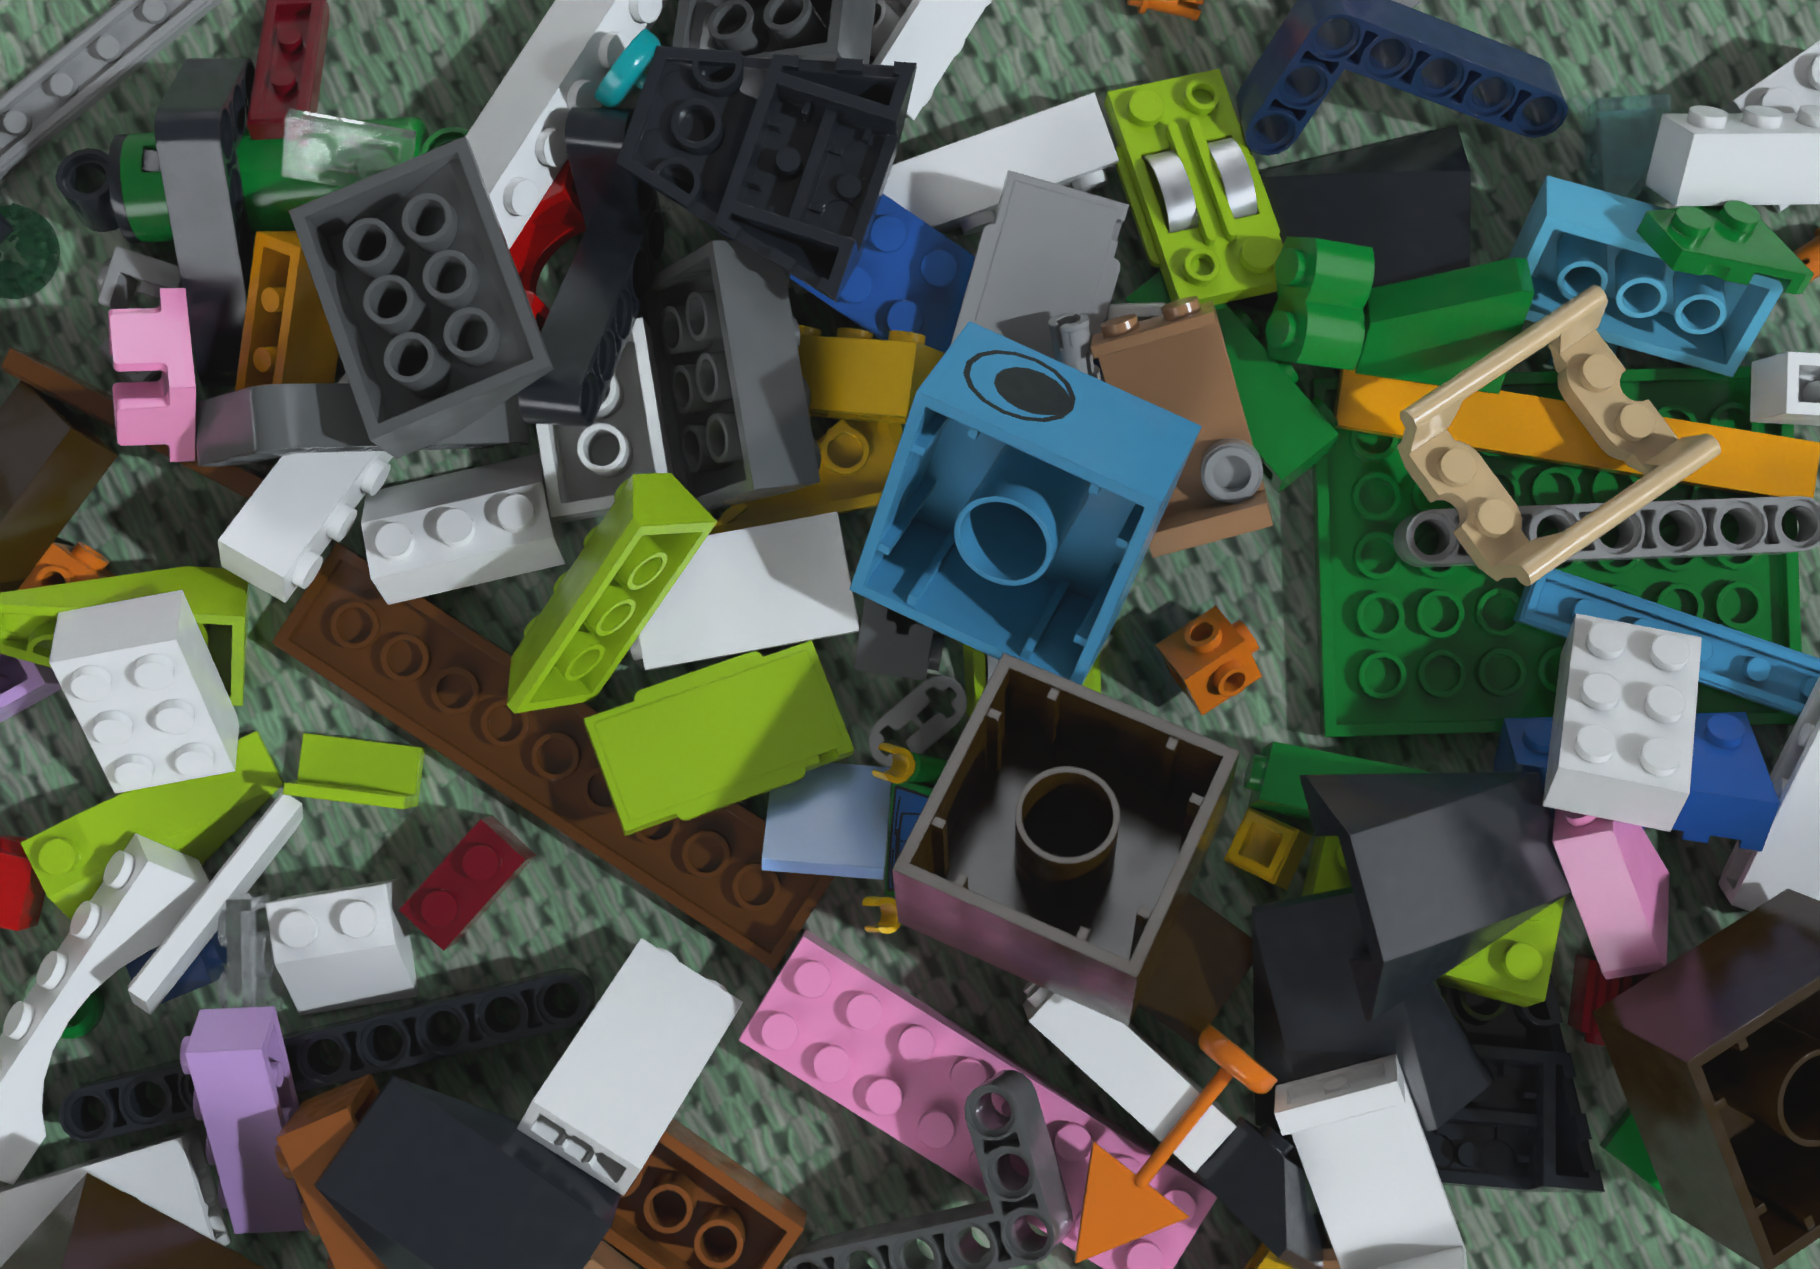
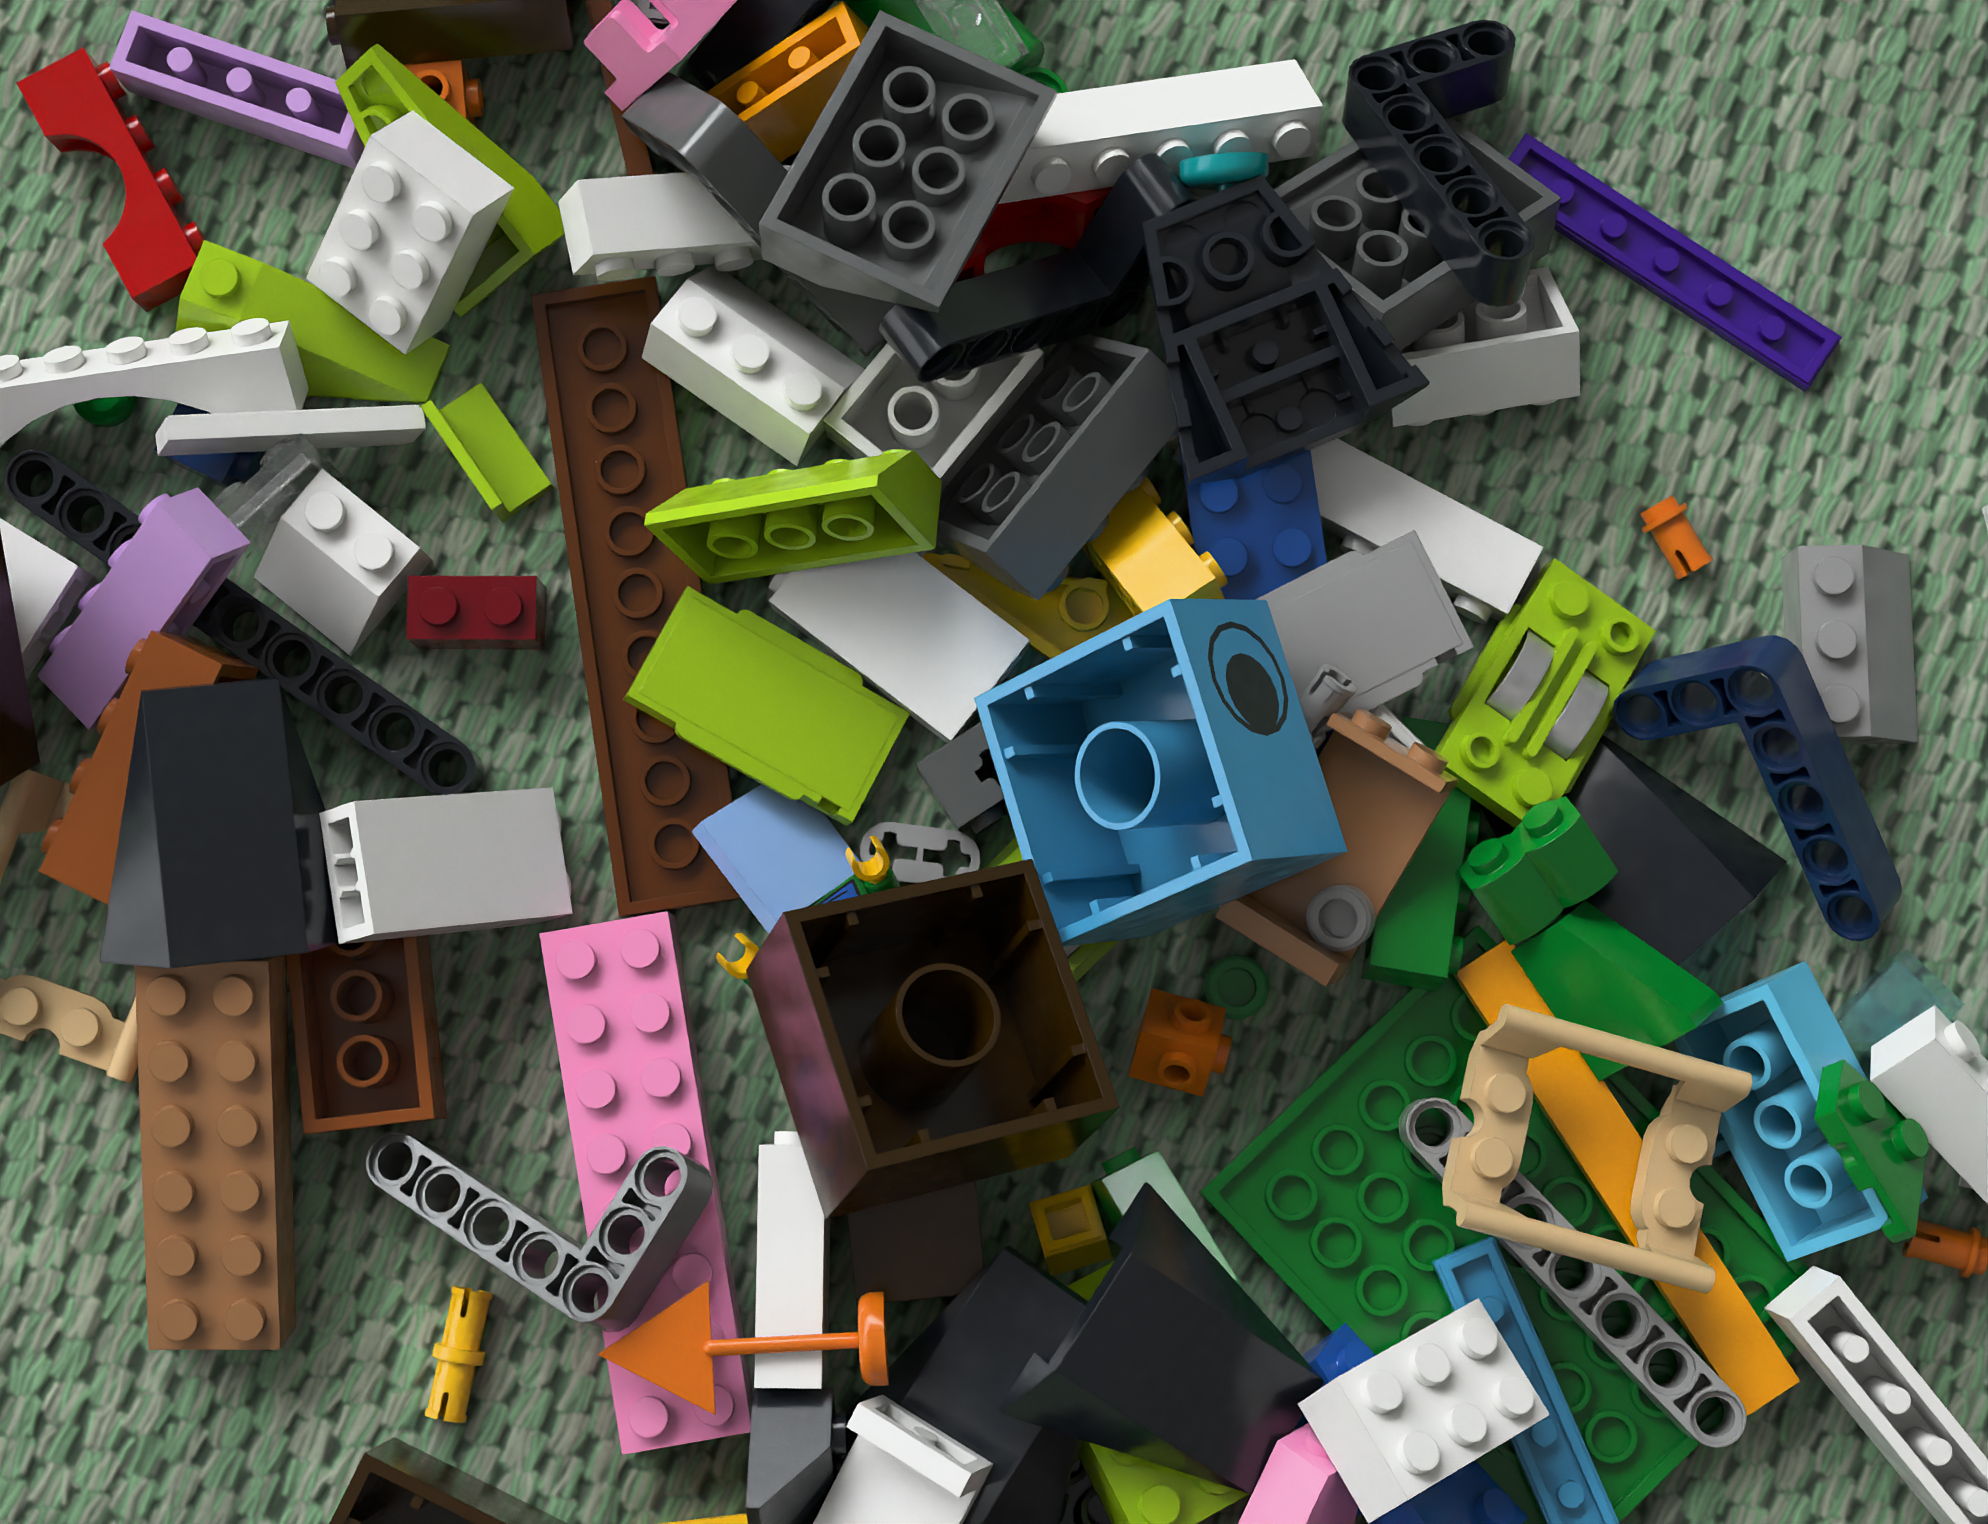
camera: 55 degrees right, 5 degrees down
(1204, 583) = (1237, 985): none -> green tile

